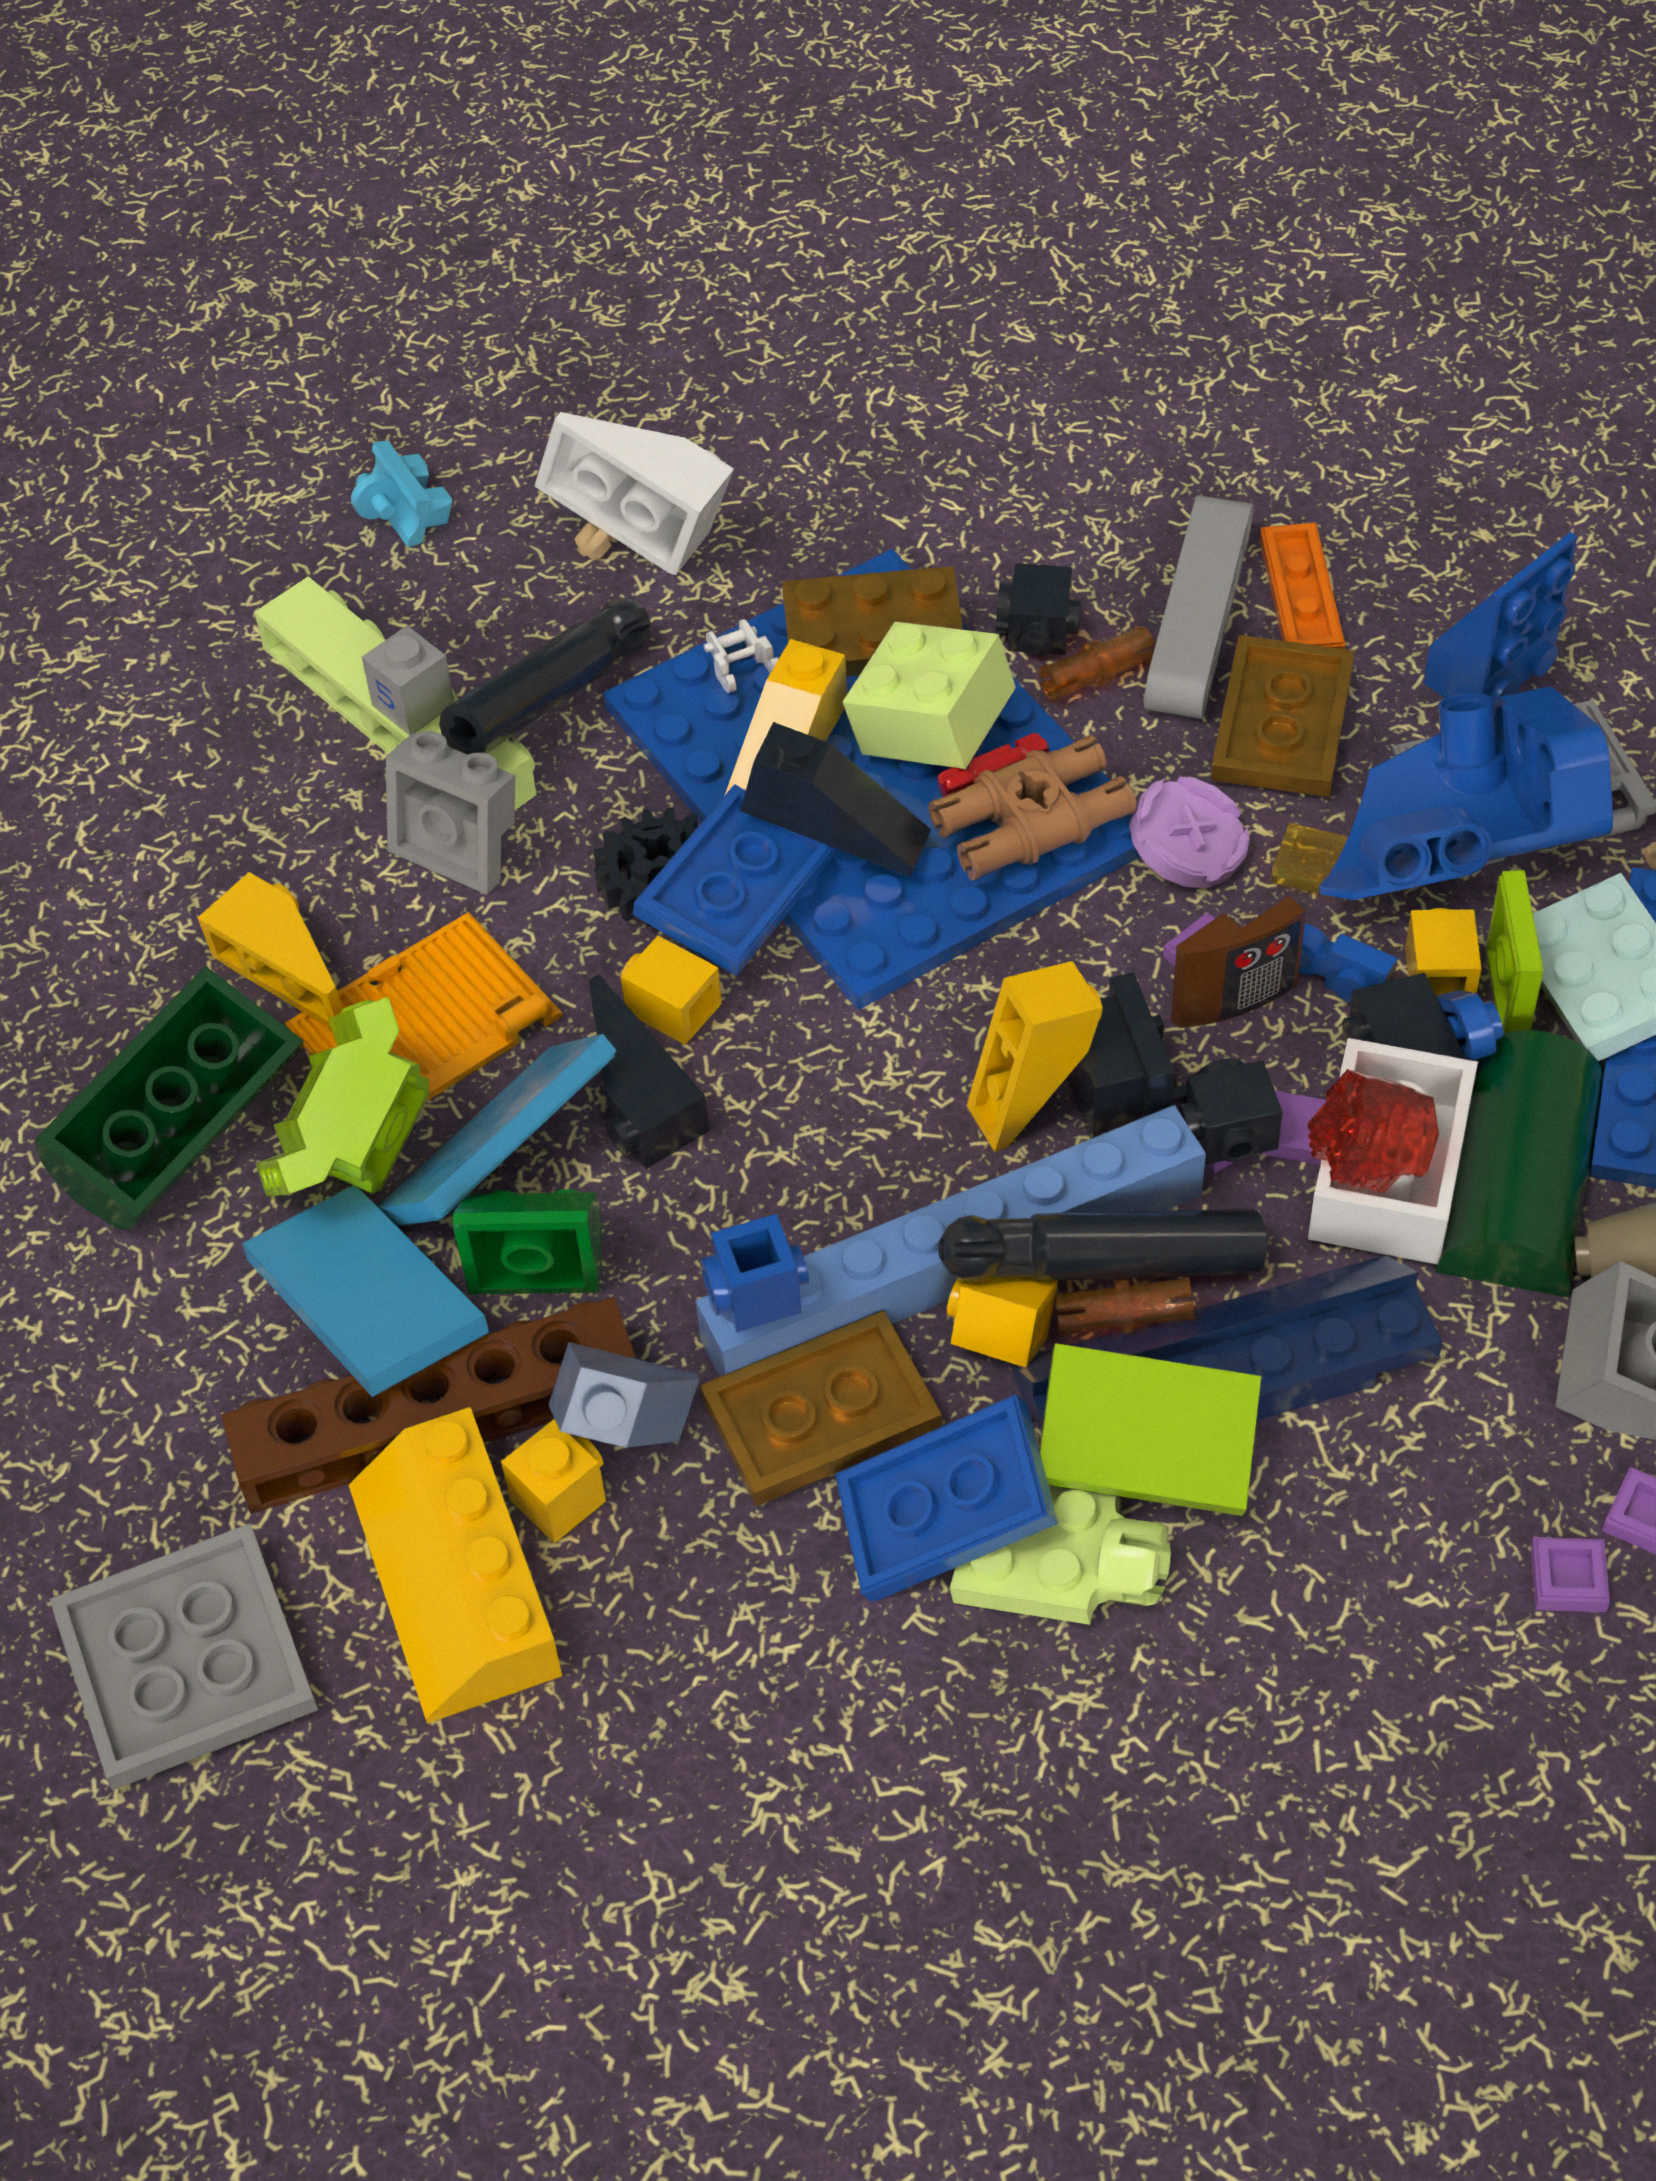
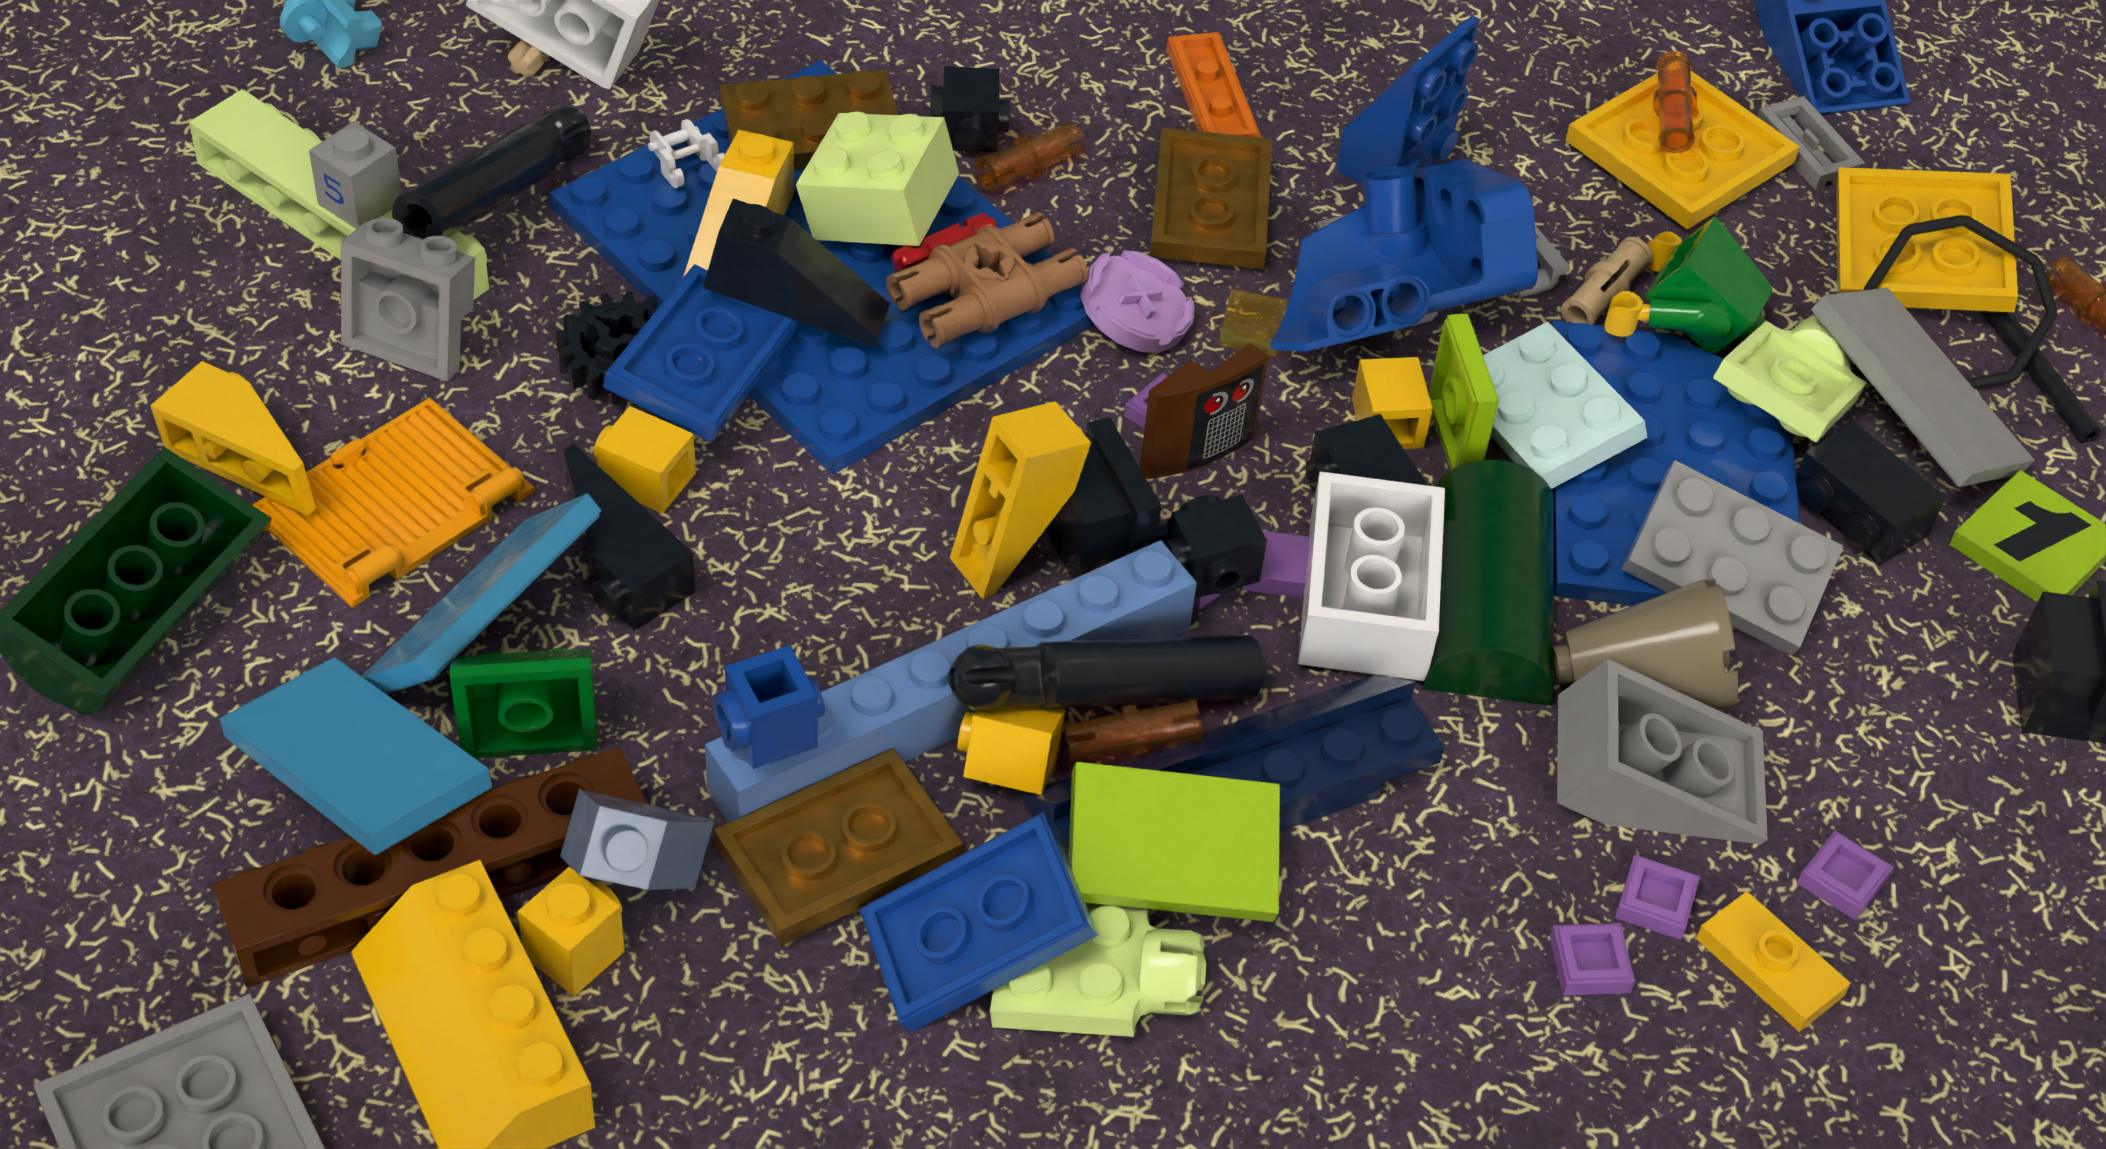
camera: 15 degrees left, 5 degrees down
(350, 1109) = (328, 577): lime slope -> none
(1198, 607) = (1120, 106): light grey beam -> none
(1344, 963) = (1301, 411): blue plate -> none
(1374, 1131) = (1361, 549): clear red hair -> none
(1472, 1022) = (1434, 454): blue plate -> none

